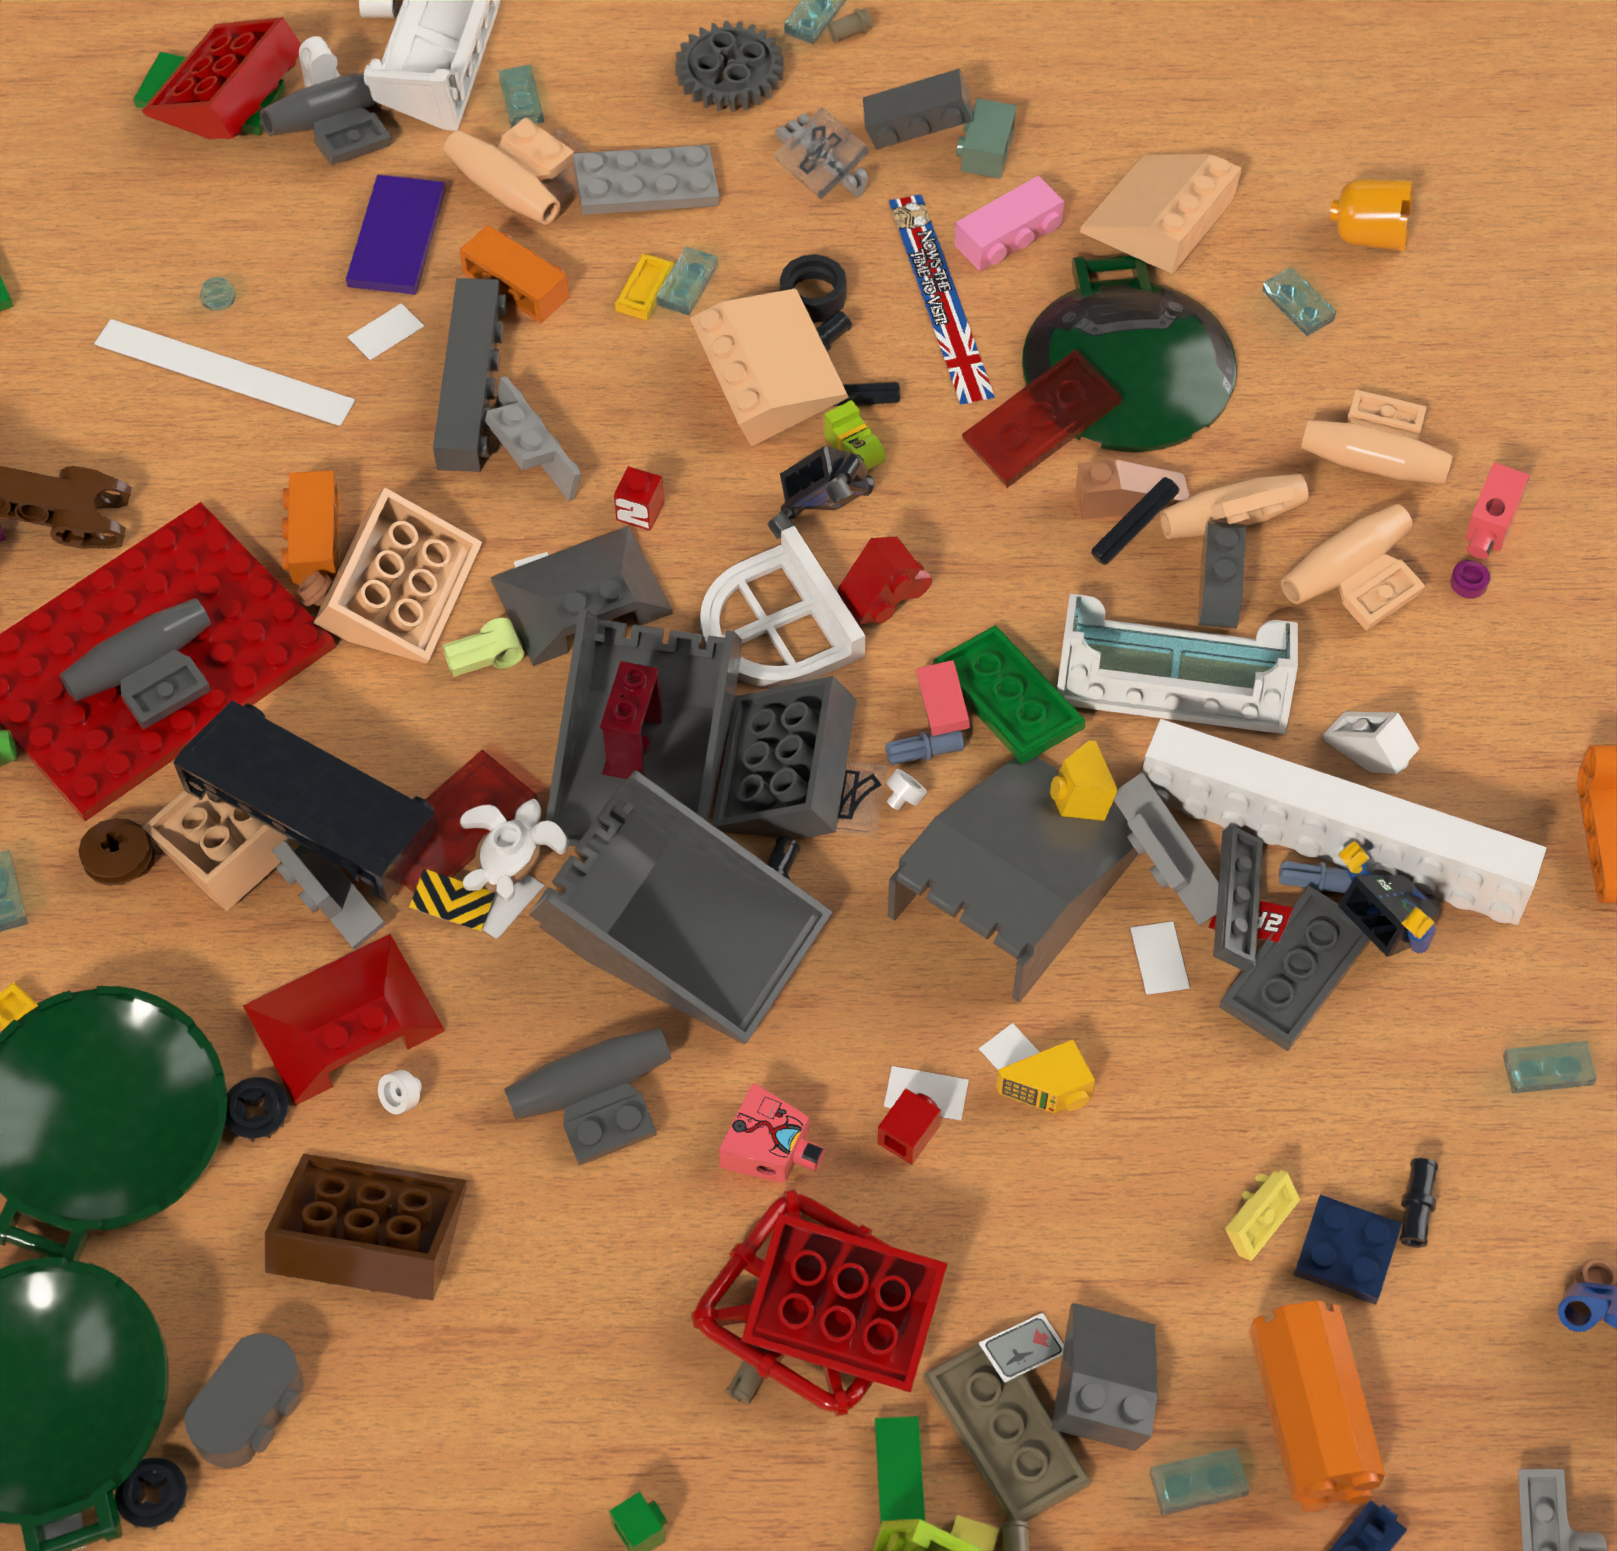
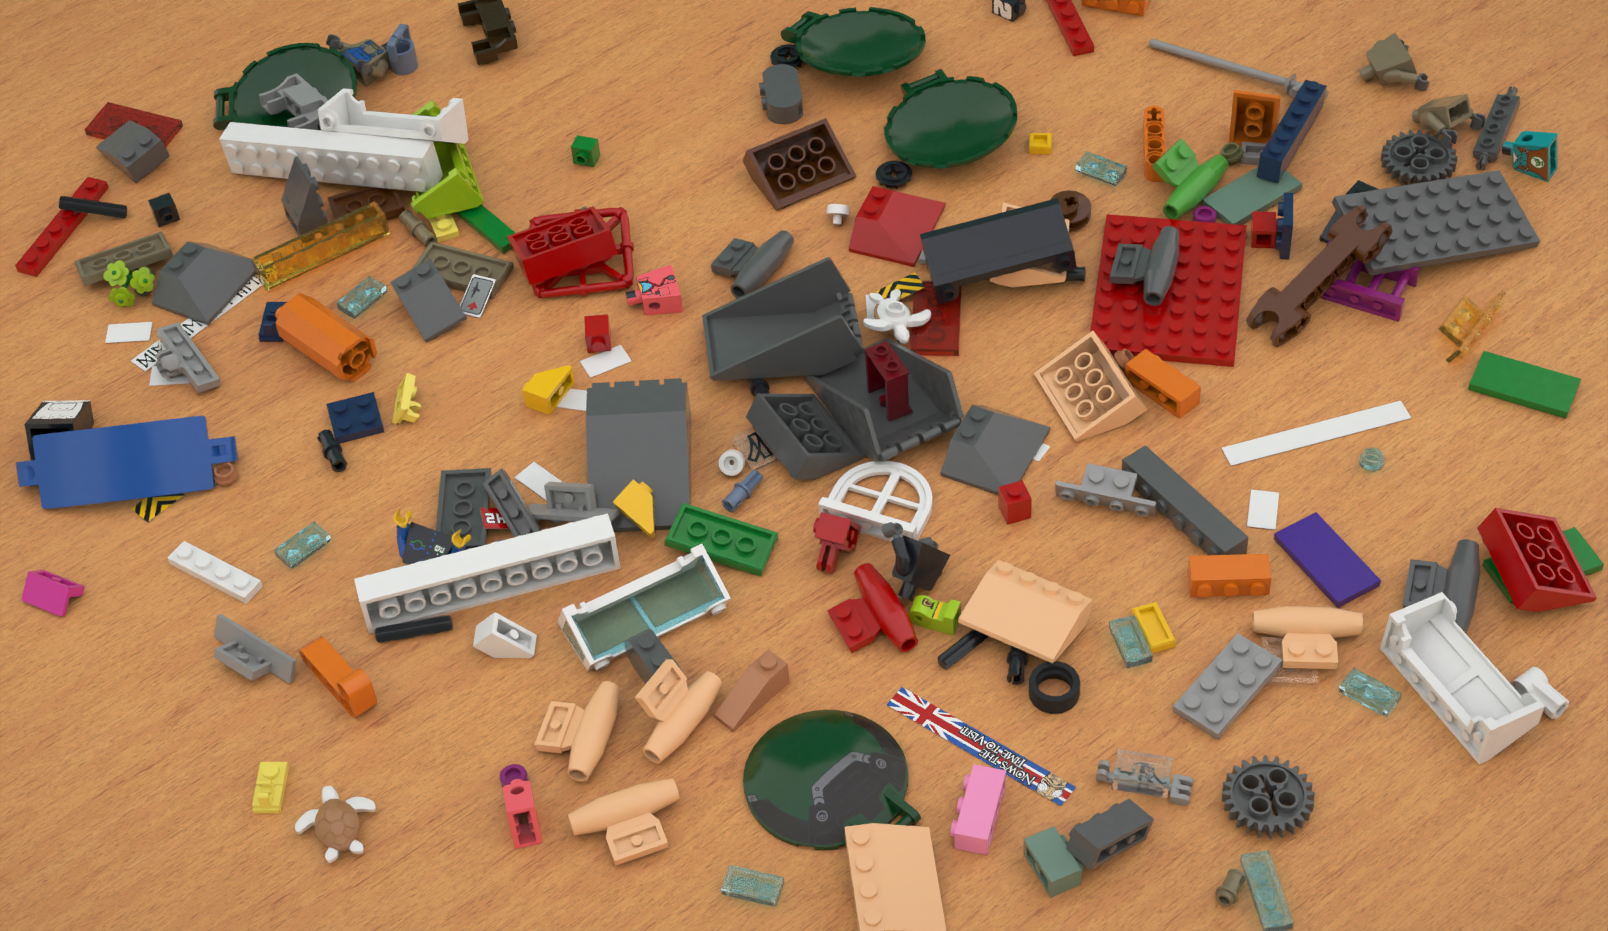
camera: 145 degrees right, 10 degrees down
(317, 61) = (1490, 608): white leg -> none
(494, 645) = (1008, 391): yellowish green piece -> none
(912, 483) = (877, 611): none -> red plate
(943, 698) = (750, 506): coral tile -> none
(1041, 418) = (839, 693): clear red tile -> none
(1135, 520) = (731, 668): black axle -> none

